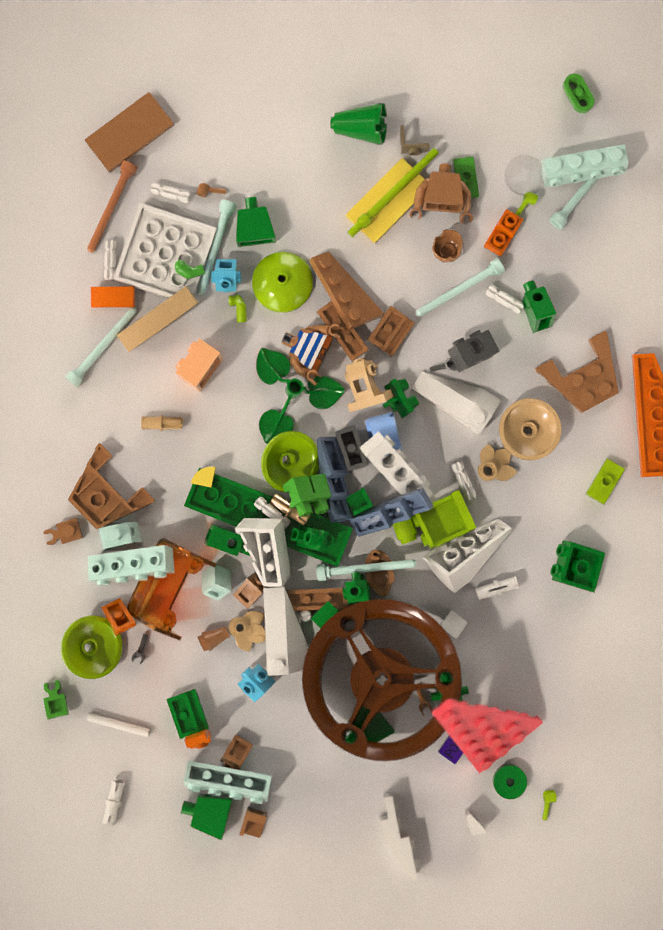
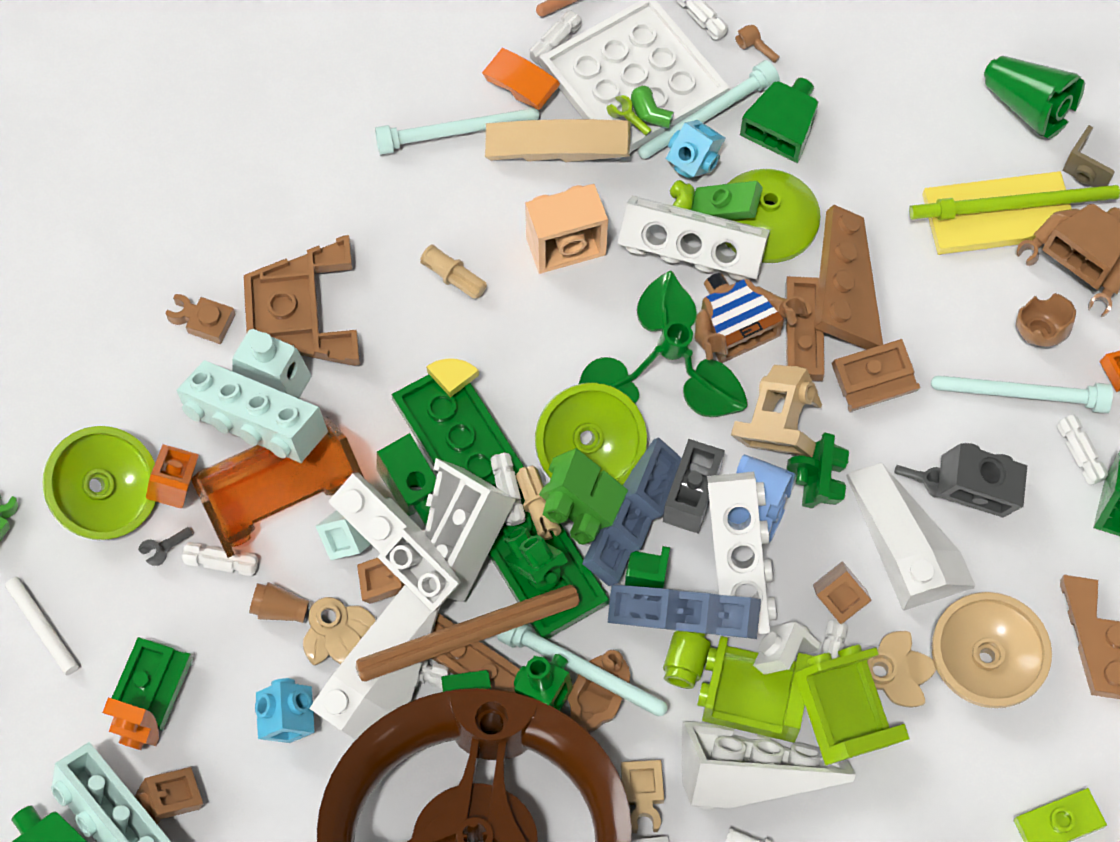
camera: 40 degrees right, 20 degrees down
(165, 640) = (216, 559): none -> white axle
(180, 281) = (628, 114): none -> lime hand
(247, 575) = (398, 539): none -> white slope
(261, 293) = (728, 200): none -> bright green plate
(267, 316) = (712, 230): none -> white brick
(308, 592) = (466, 633): none -> medium nougat axle
(427, 598) = (643, 788): none -> tan plate
(442, 494) = (782, 645): none -> white bracket
(448, 449) = (841, 592): none -> medium nougat panel
(488, 501) = (846, 705): none -> lime panel

